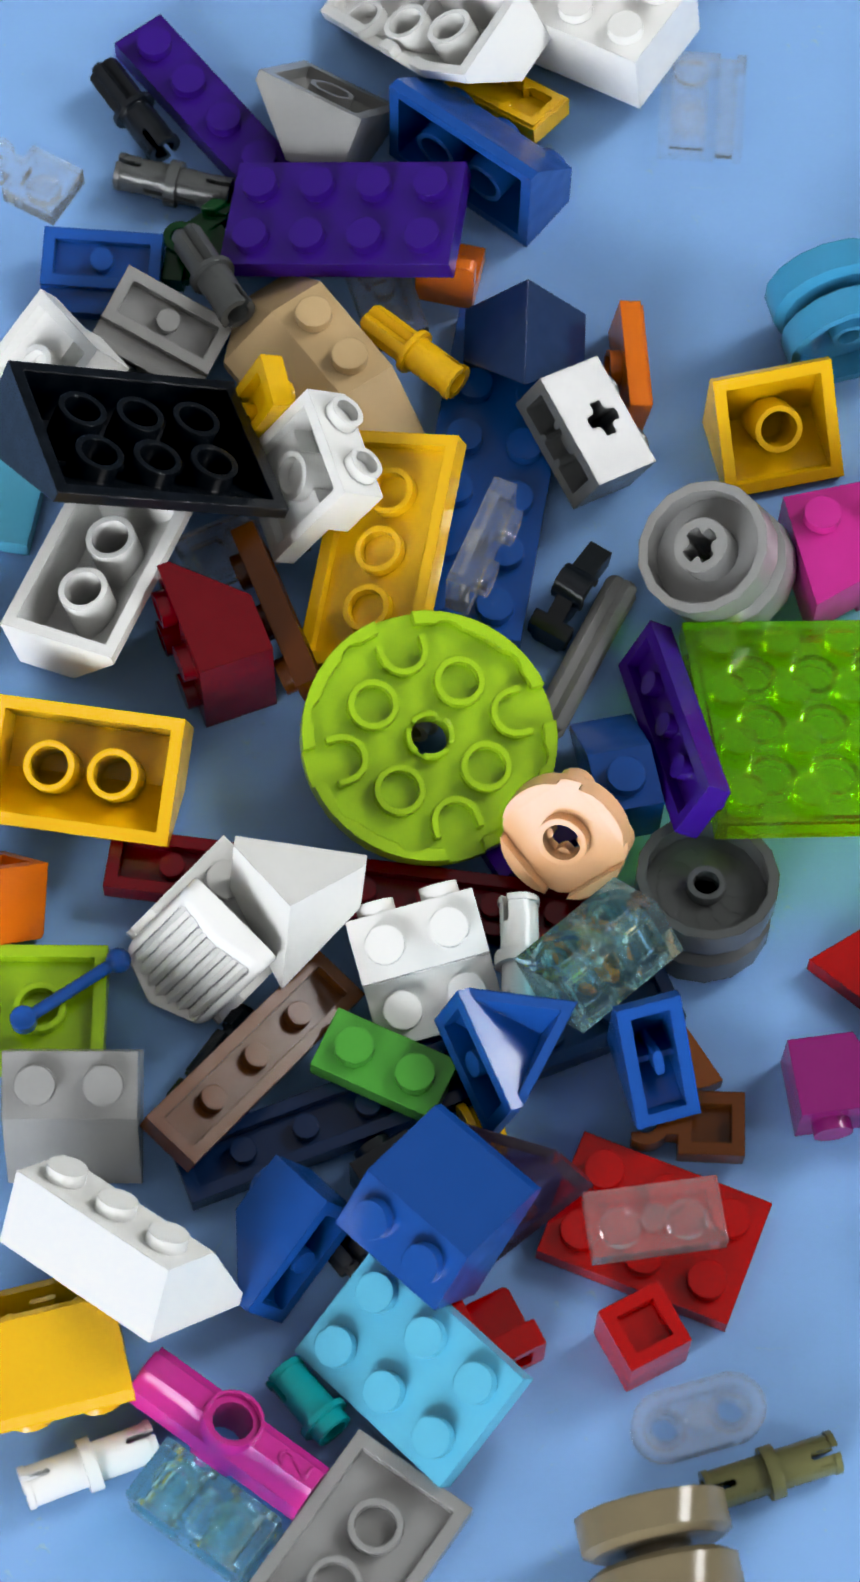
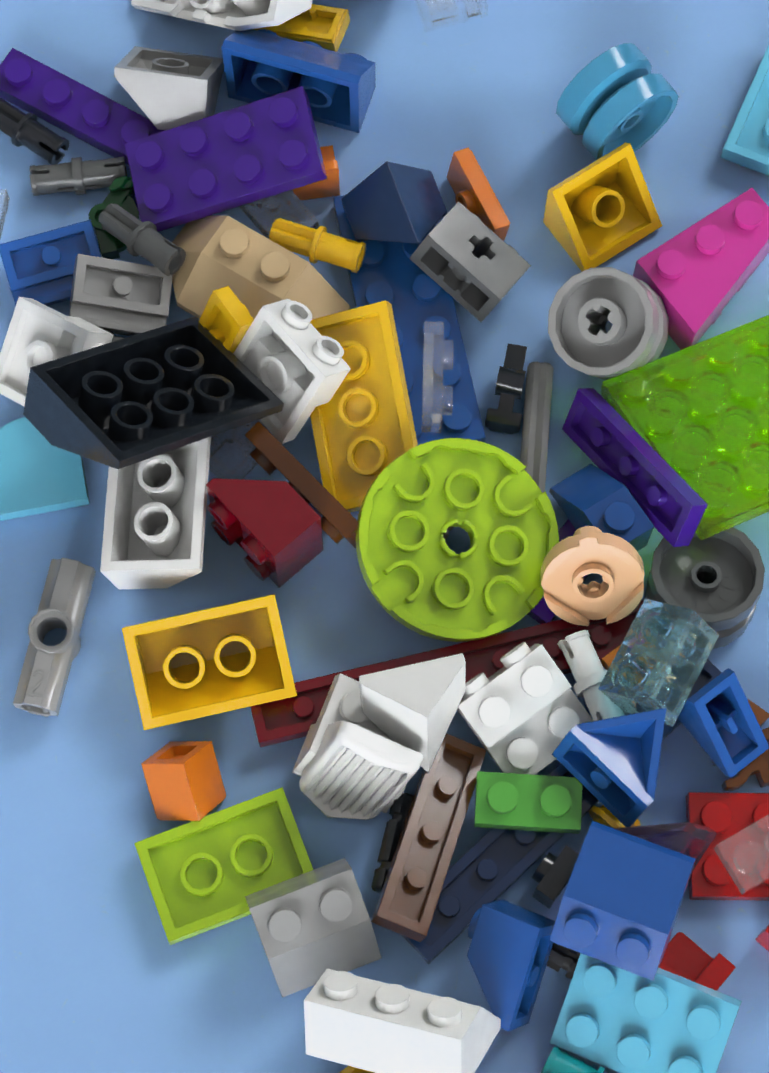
camera: 20 degrees left, 5 degrees up
(24, 1018) = (244, 868): blue hinge -> none

